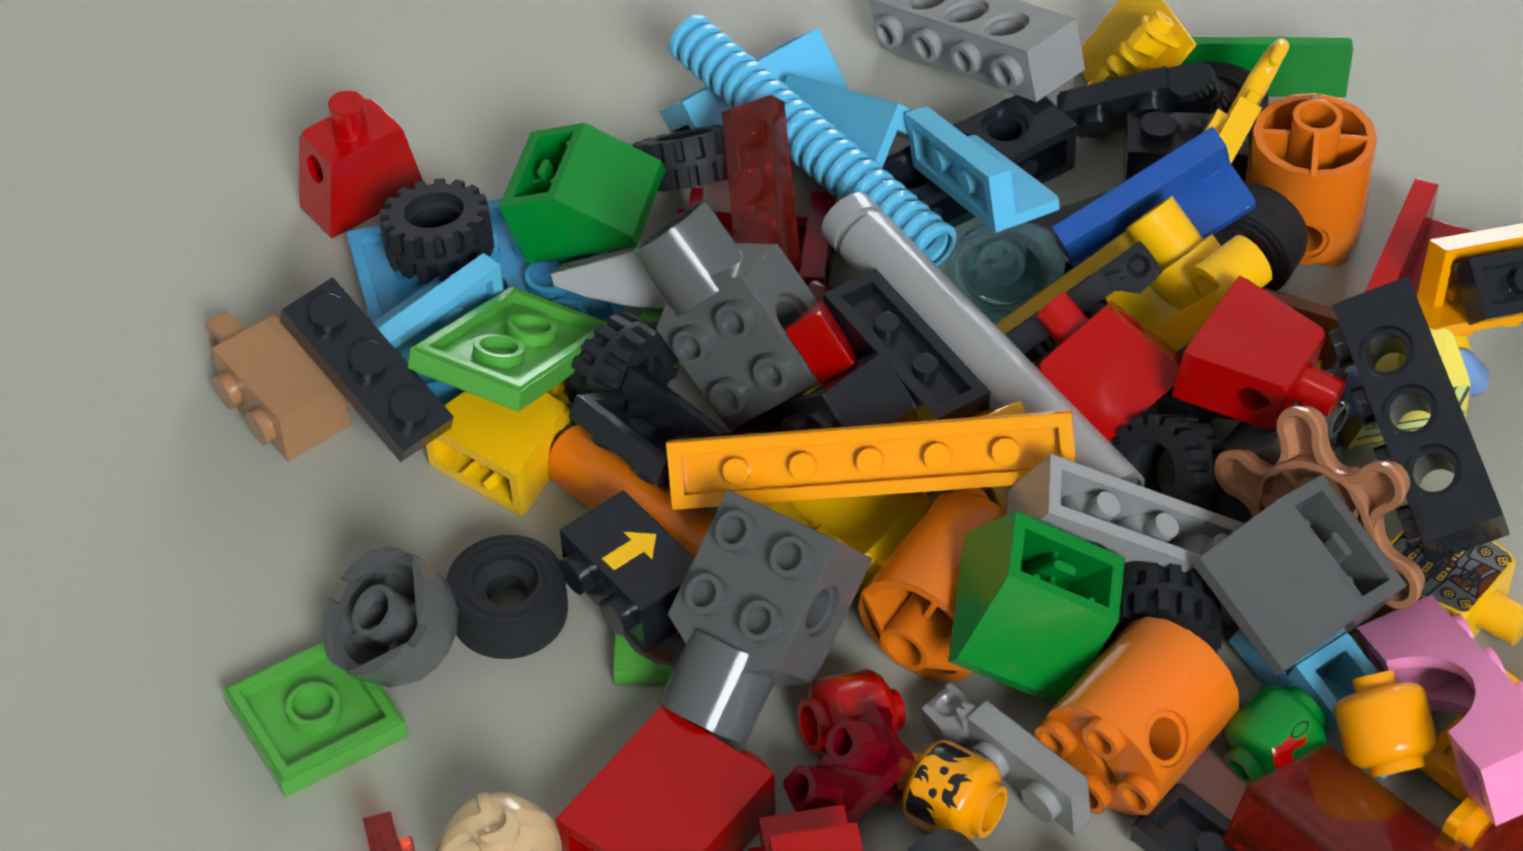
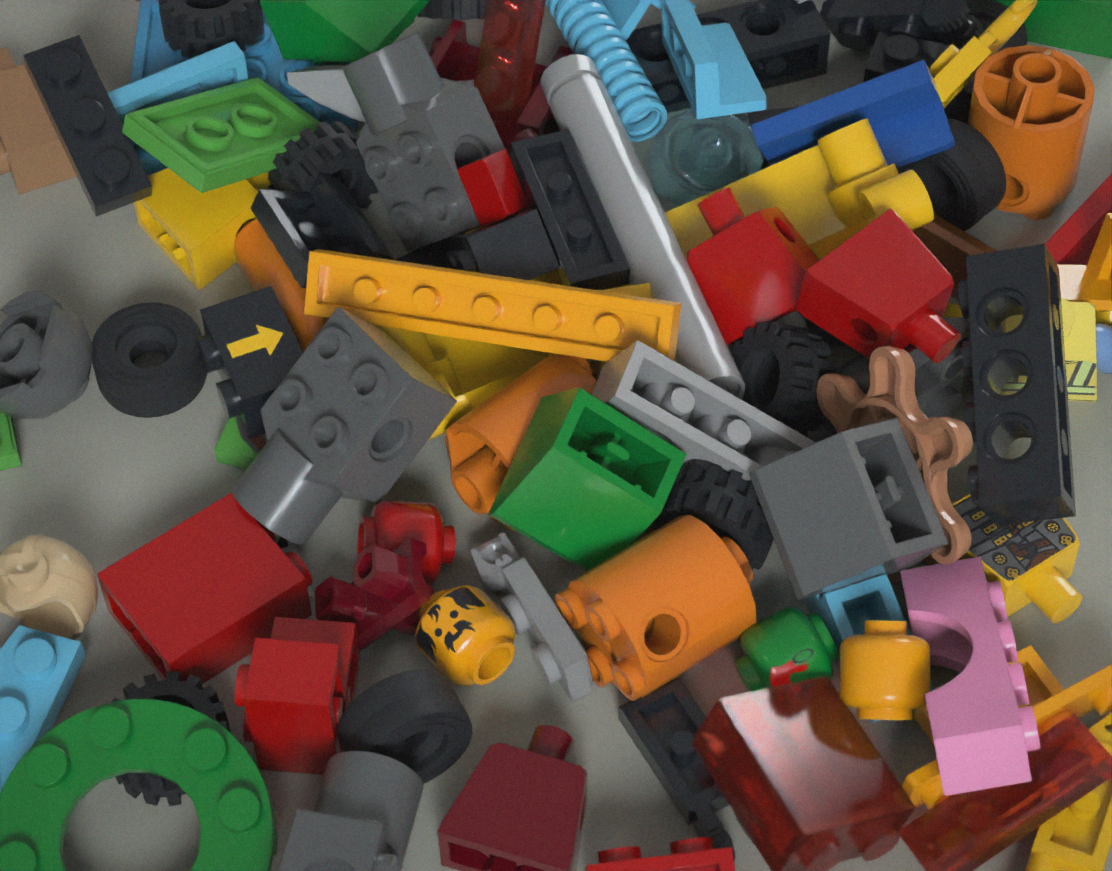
camera: 15 degrees right, 5 degrees up
(1128, 272) = (802, 183): black hinge -> none

